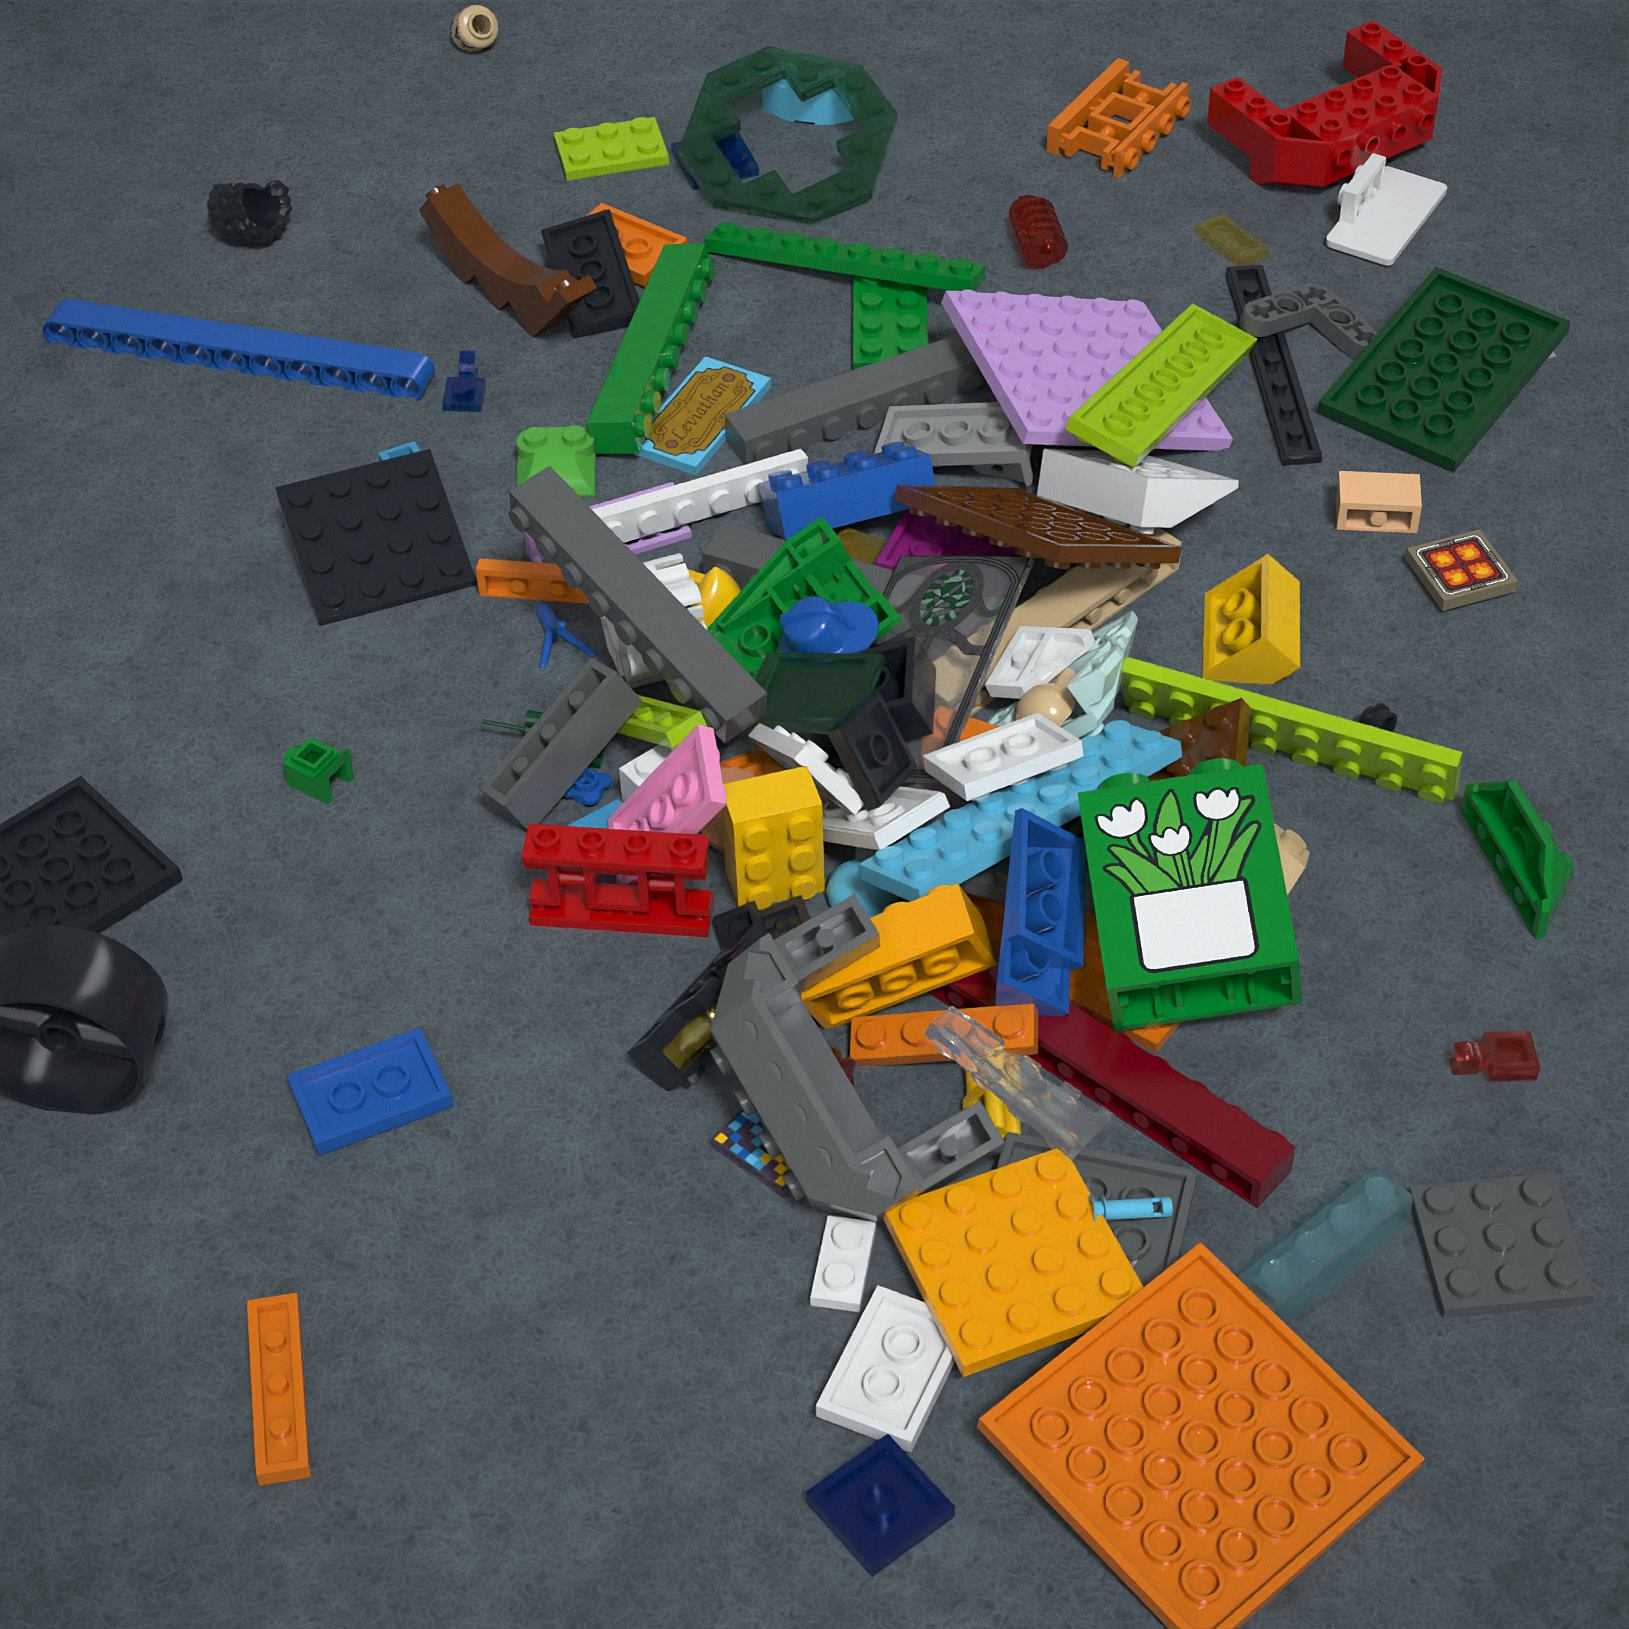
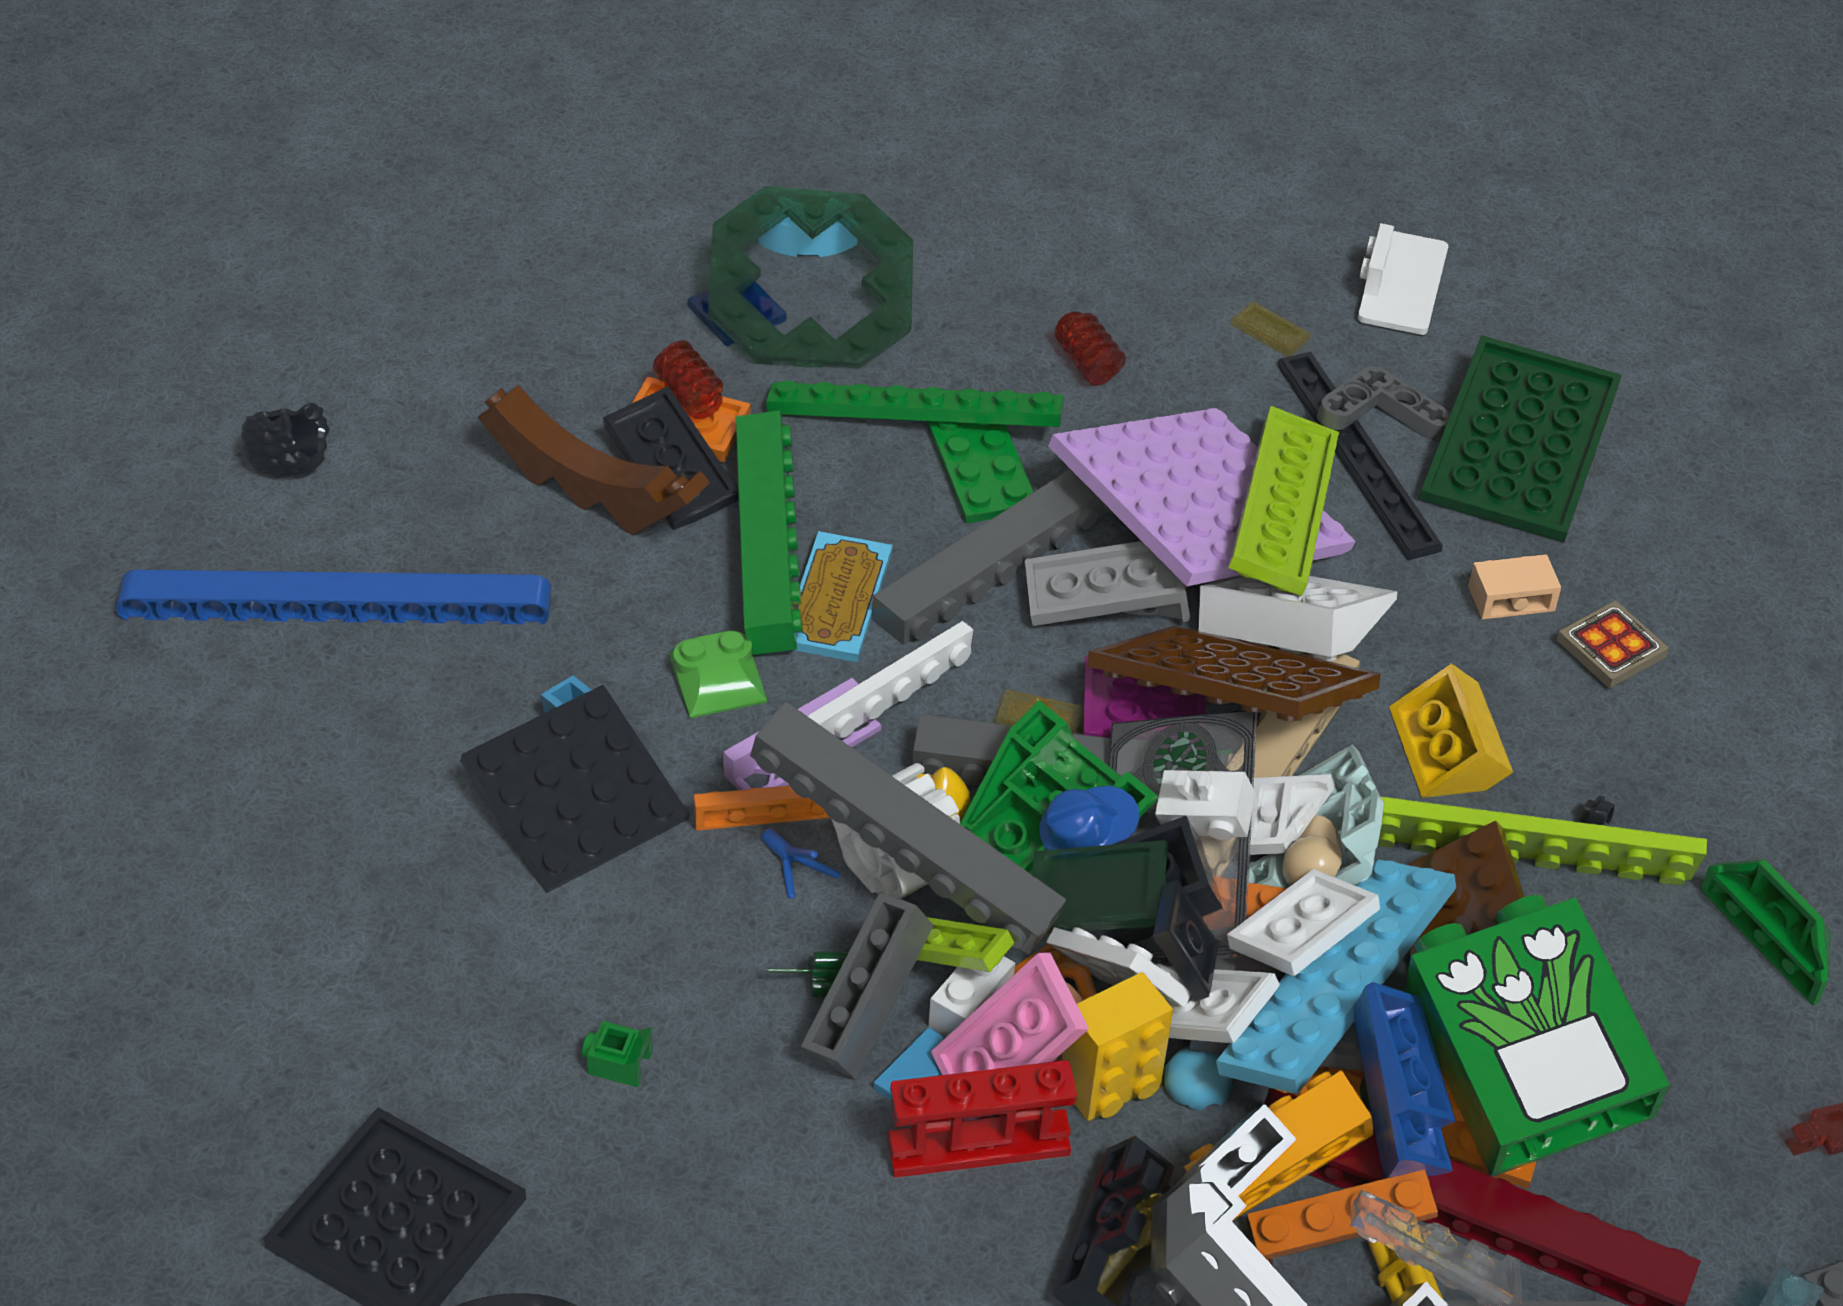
camera: 20 degrees left, 0 degrees up
(466, 391) = (589, 607): clear blue plate -> none
(474, 28) = (434, 196): tan head -> none
(593, 791) = (898, 1026): blue plate -> none
(611, 148) = (626, 312): lime plate -> none
(632, 206) = (689, 379): none -> clear red piece
(776, 919) = (1138, 1119): black slope -> none
(843, 491) = (1024, 661): blue brick -> none
(952, 631) = (1214, 801): none -> white brick
(1116, 142) = (1114, 233): orange fence -> none
(1333, 133) = (1338, 201): red wedge -> none

